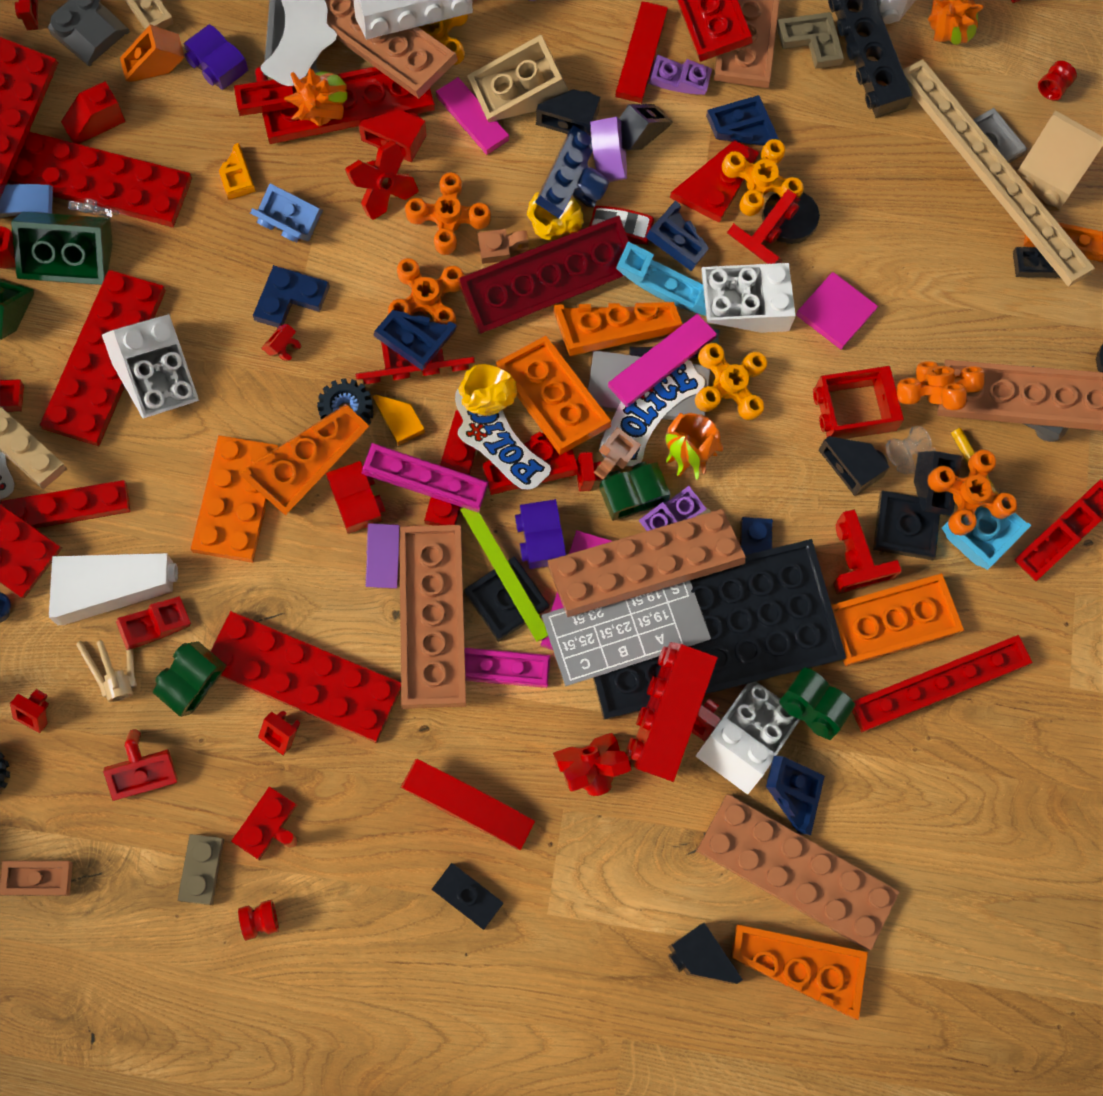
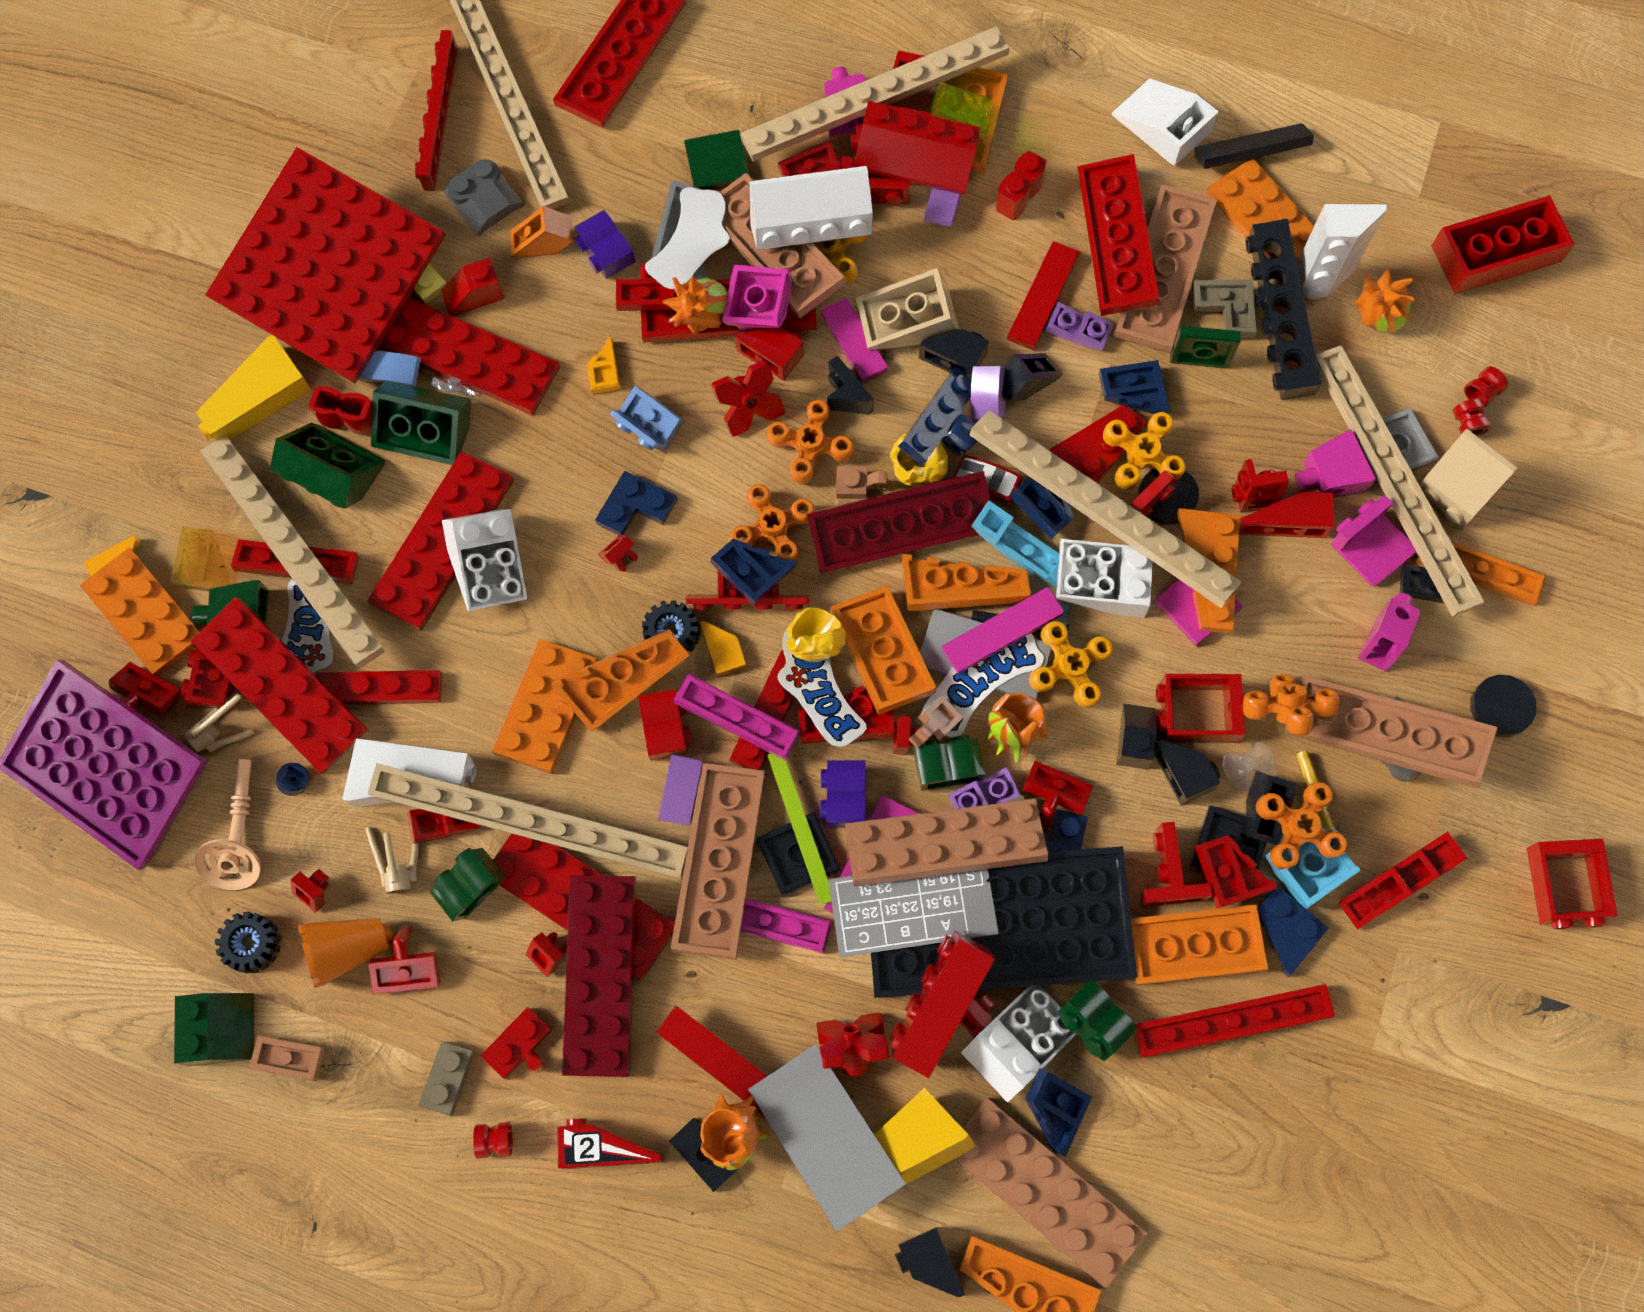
camera: 20 degrees right, 0 degrees up
(48, 117) = (429, 285): none -> light yellow plate
(73, 759) = (341, 946): none -> orange cone
(236, 607) = (527, 820): none -> tan plate
(335, 744) = (599, 976): none -> dark red plate
(359, 908) = (591, 1146): none -> slope
(375, 83) = (757, 297): none -> dark pink slope
(477, 163) = (849, 393): none -> black slope
(492, 869) = (731, 1133): none -> orange hair
(585, 857) = (826, 1138): none -> light grey sticker
(659, 855) = (922, 1137): none -> yellow slope
(737, 232) = (1105, 509): none -> tan plate
(740, 498) = (1057, 790): none -> red plate
(800, 76) = (1205, 347): none -> dark green tile
(804, 440) = (1137, 737): none -> black slope
(844, 272) = (1217, 539): none -> orange wing
(873, 198) = (1260, 490): none -> red bracket
(914, 217) = (1301, 515): none -> red slope
(914, 547) = (1231, 872): none -> red wing
(939, 170) = (1337, 467): none -> dark pink torso
(975, 590) = (1289, 928): none -> dark blue wing
(983, 232) = (1373, 542): none -> dark pink bracket
(1021, 297) = (1393, 623): none -> dark pink torso
(1047, 104) = (1471, 417): none -> red wheel

